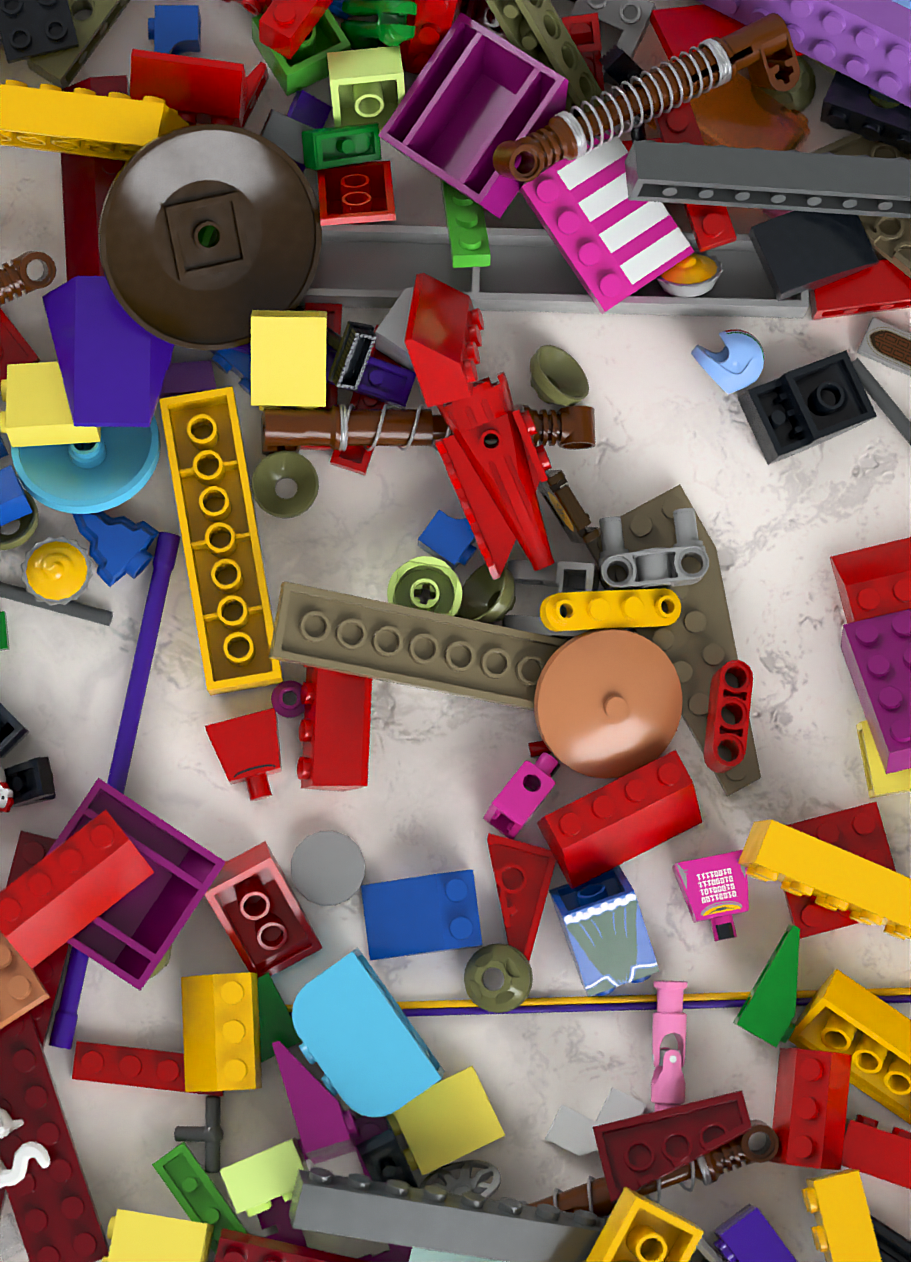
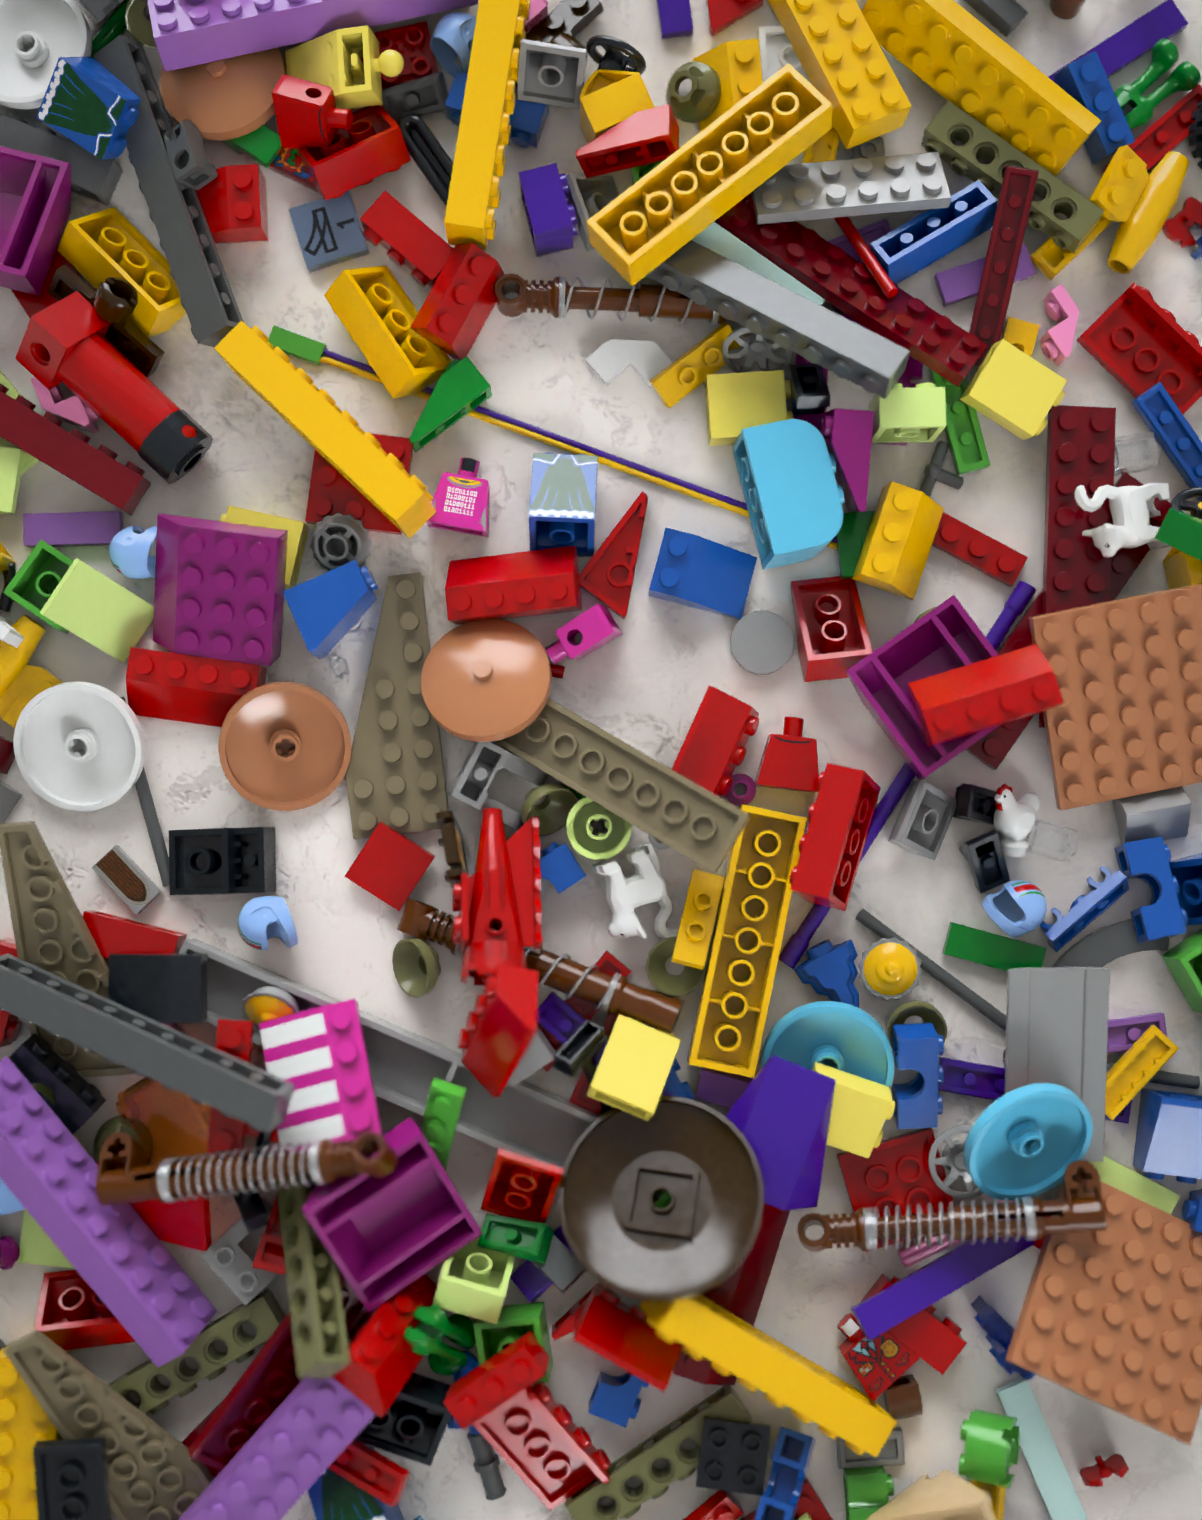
camera: 155 degrees left, 5 degrees up
(79, 743) = (923, 819): none -> light grey slope
(169, 681) = (835, 836): none -> red brick
(280, 537) = (697, 919): none -> yellow plate
(359, 546) = (634, 890): none -> white animal
(516, 972) = (649, 507): olive piece -> none
(524, 1142) = (692, 367): none -> yellow plate
(610, 609) = (454, 752): yellow plate -> none
(629, 471) = (389, 866): none -> red tile
(654, 566) = (402, 774): light grey piece -> none
(660, 1142) = (591, 318): dark red wing -> none
(668, 1078) = (561, 370): bright pink piece -> none
(738, 702) = (380, 639): red beam -> none
(792, 549) = (284, 746): none -> nougat dish
(807, 715) = (331, 605): none -> blue slope
(827, 791) = (340, 541): none -> light grey piece

